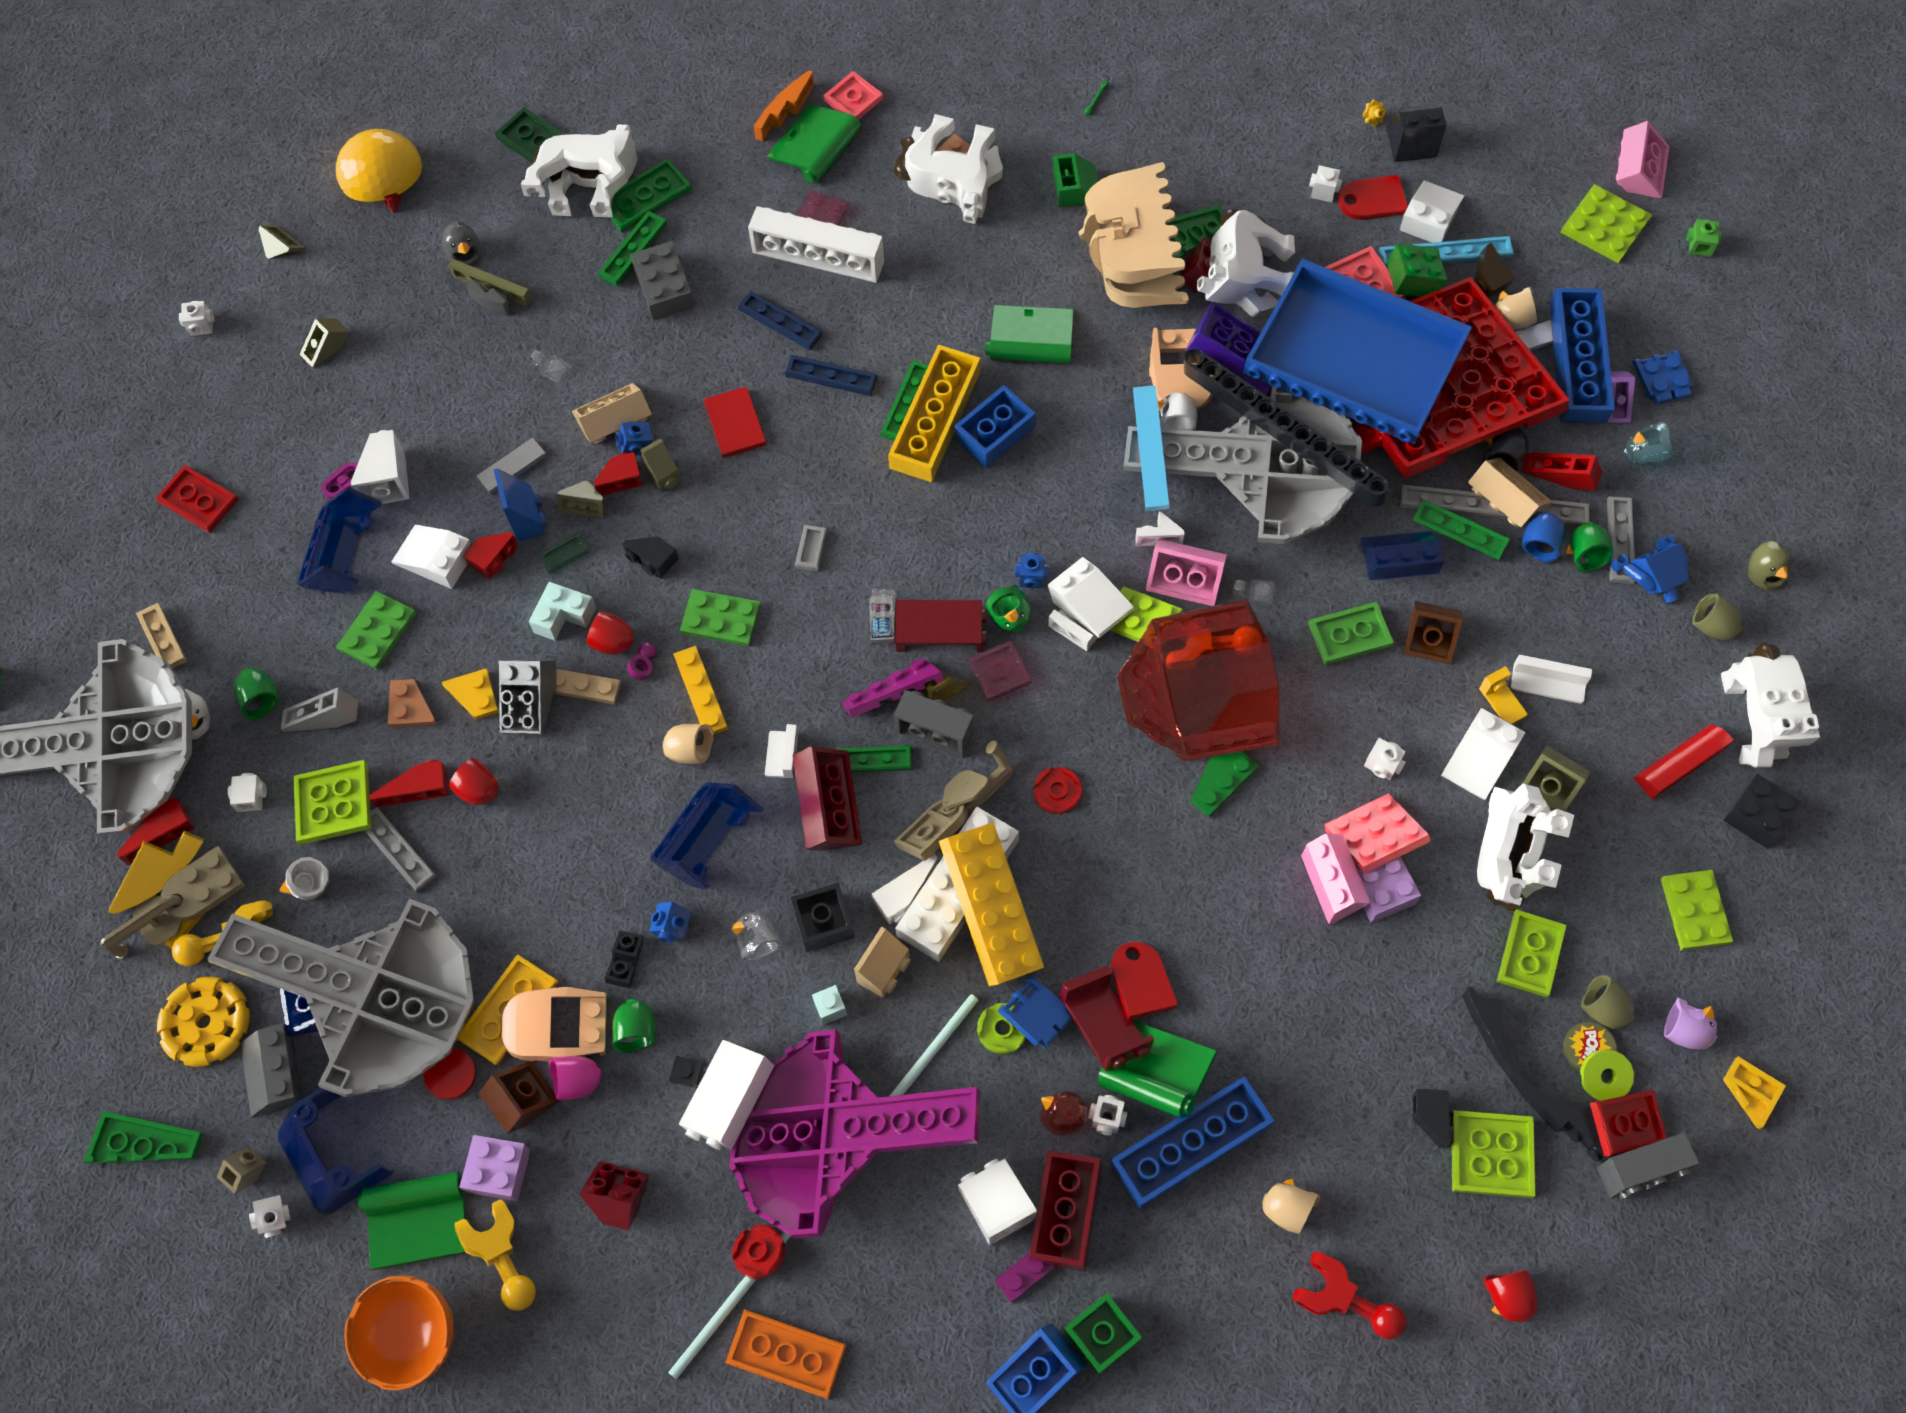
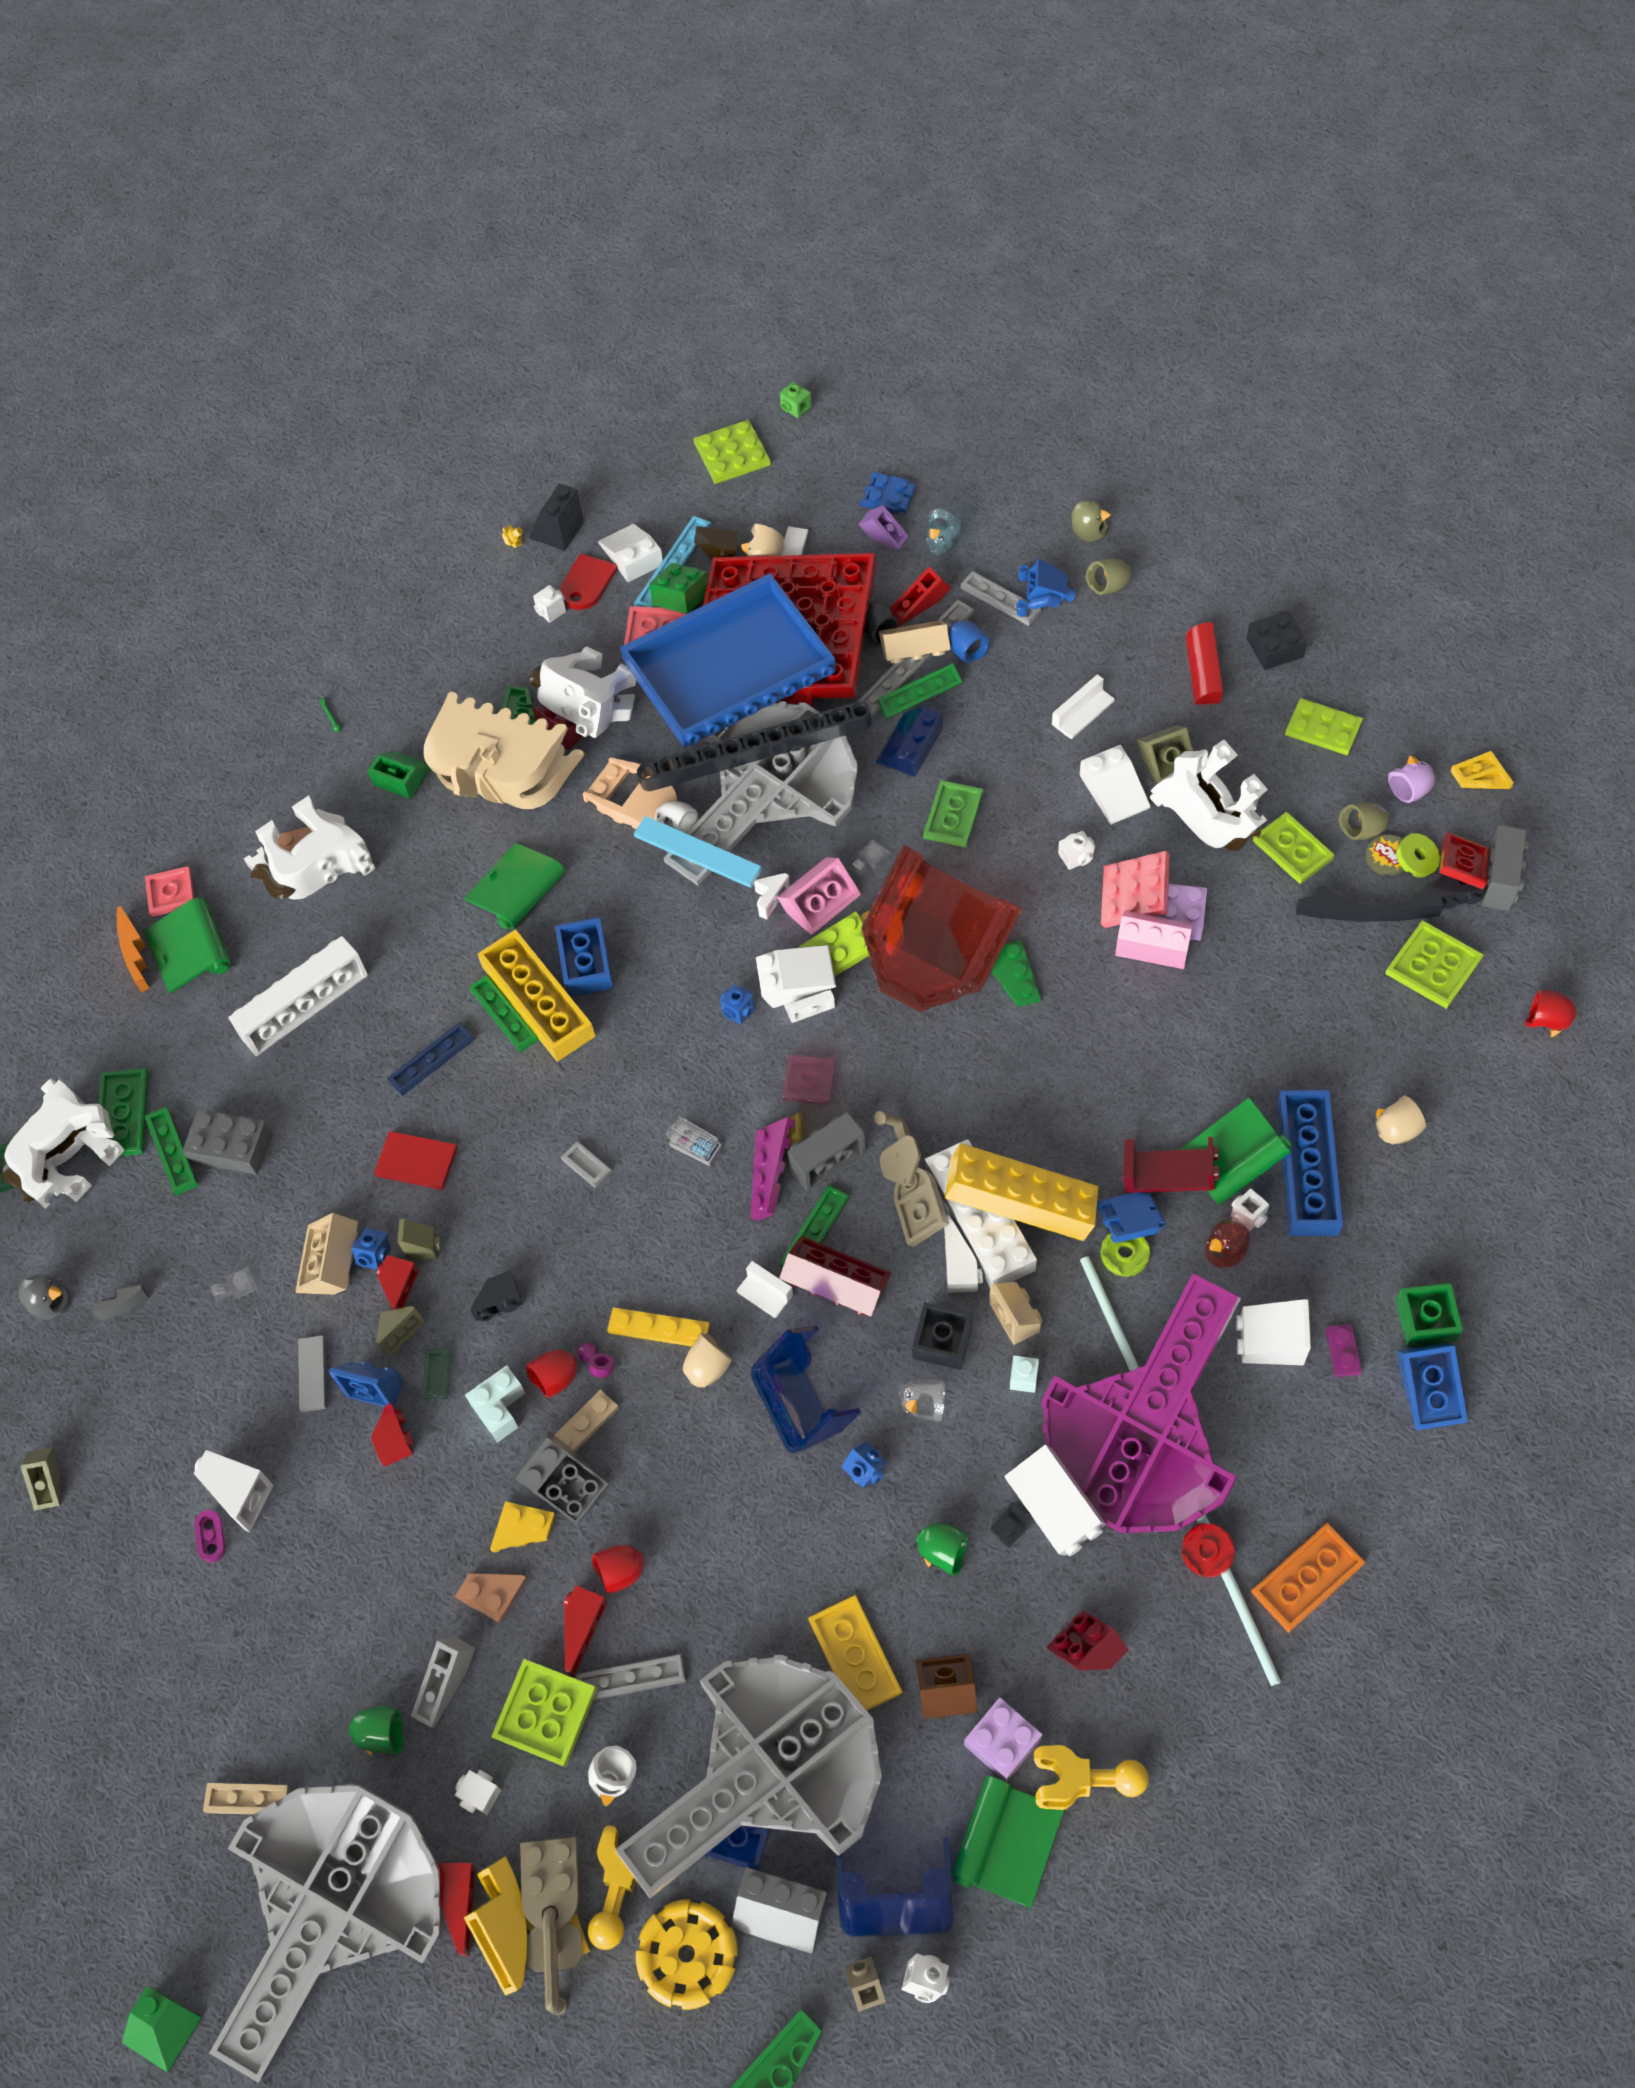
camera: 55 degrees left, 5 degrees down
(197, 498) = (116, 1690): red tile -> none
(335, 541) = (268, 1578): clear blue windscreen -> none
(376, 630) = (390, 1584): bright green plate -> none
(399, 1332) = (1117, 1899): orange piece -> none
(433, 554) = (351, 1490): white slope -> none
(451, 1076) = (892, 1738): red tile -> none
(511, 290) = (108, 1289): olive tile -> none
(528, 1024) = (887, 1639): light nougat slope -> none
(574, 1077) = (965, 1618): dark pink piece -> none
(624, 959) = (871, 1526): black slope -> none
(720, 617) = (599, 1273): bright green plate -> none
(780, 320) = (343, 1070): dark blue tile -> none
(823, 208) = (260, 975): clear pink plate -> none
(940, 623) = (735, 1099): dark red panel -> none
(1009, 608) = (762, 1038): green piece -> none
(1056, 797) = (945, 1103): red tile -> none
(1066, 1210) = (1310, 1277): dark red slope -> none
(1141, 982) = (1150, 1125): red tile -> none
(1227, 342) = (642, 744): dark purple slope -> none
(1339, 1295) = (1488, 1128): red piece -> none
(1432, 1114) = (1382, 985): black slope -> none
(1433, 632) = (991, 758): reddish brown slope -> none
(1501, 698) = (1077, 747): yellow bracket -> none
(1582, 354) = (832, 525): blue brick -> none
(1593, 543) = (995, 615): green piece -> none
(1643, 161) = (698, 398): bright pink slope -> none
(1775, 704) = (1208, 574): white piece -> none

